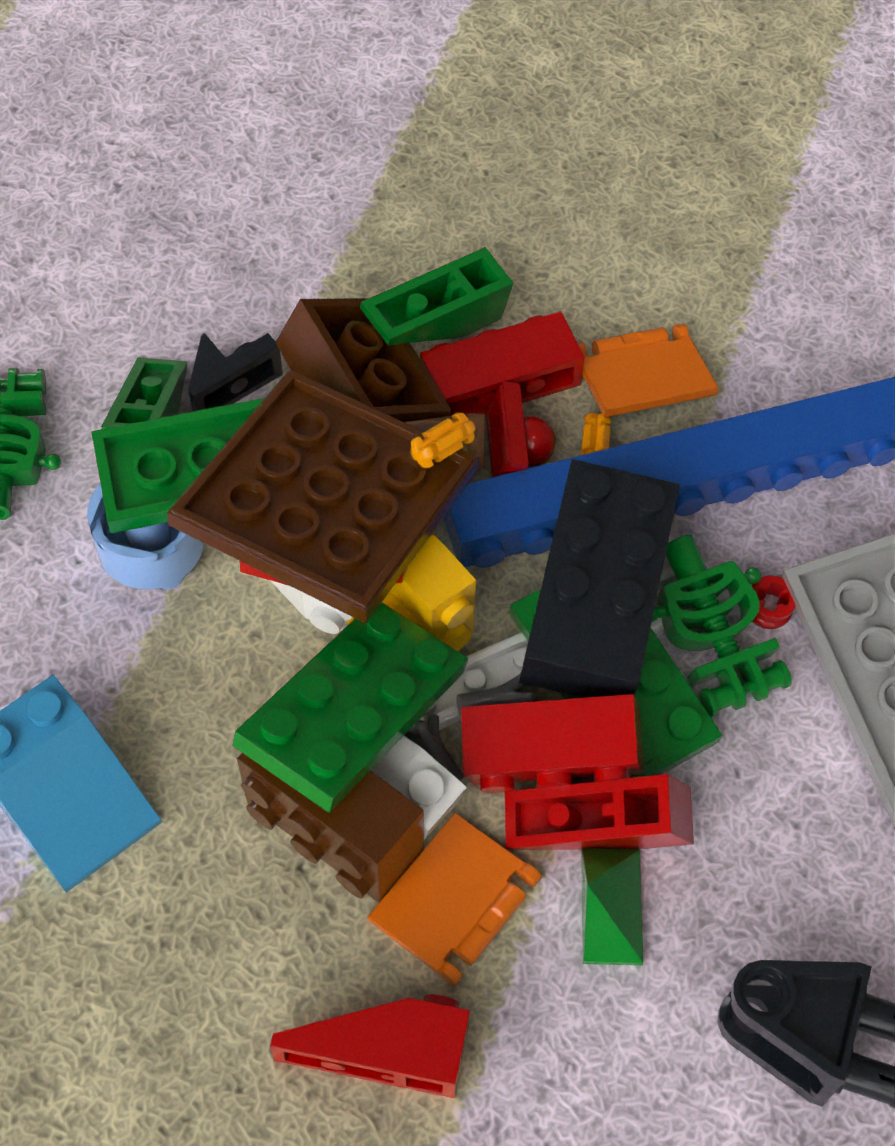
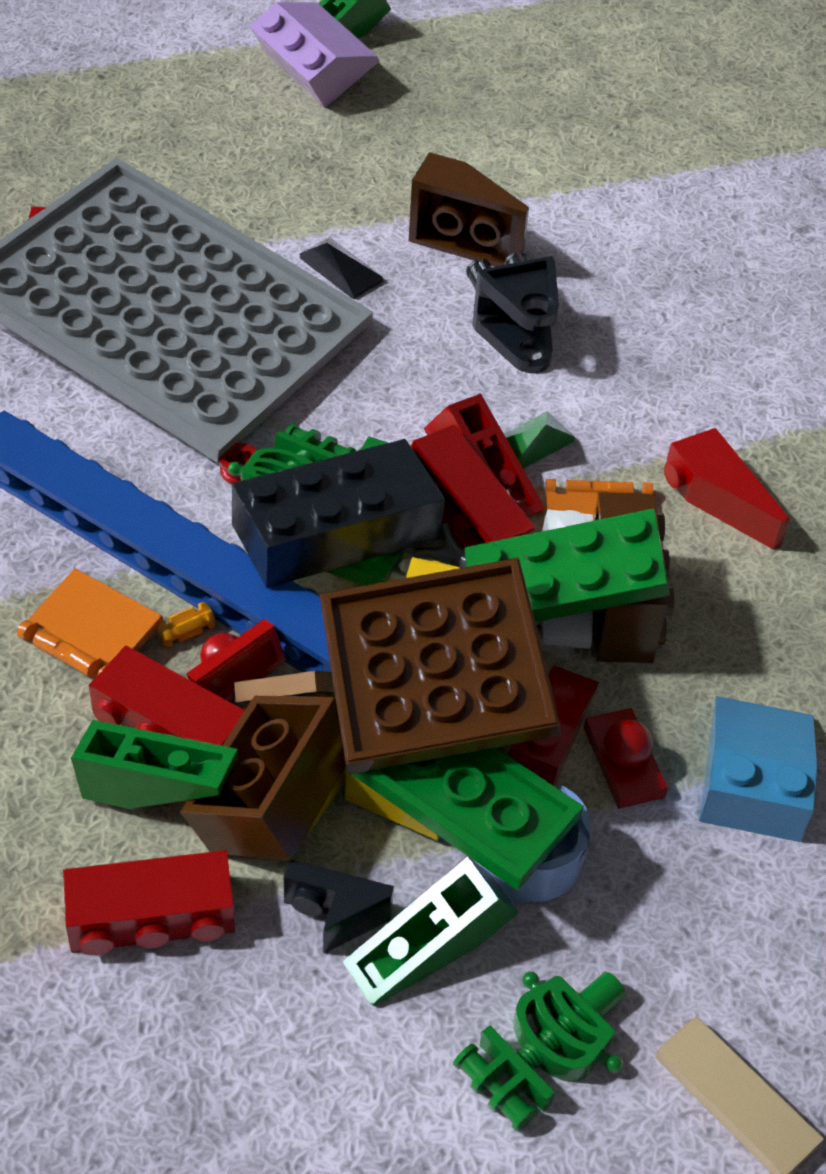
camera: 130 degrees left, 10 degrees down
(170, 684) = (626, 757): none -> red tile
(239, 628) = (572, 699): none -> red slope
(340, 255) = (148, 902): none -> red brick
(442, 440) = (334, 607): light orange piece -> none

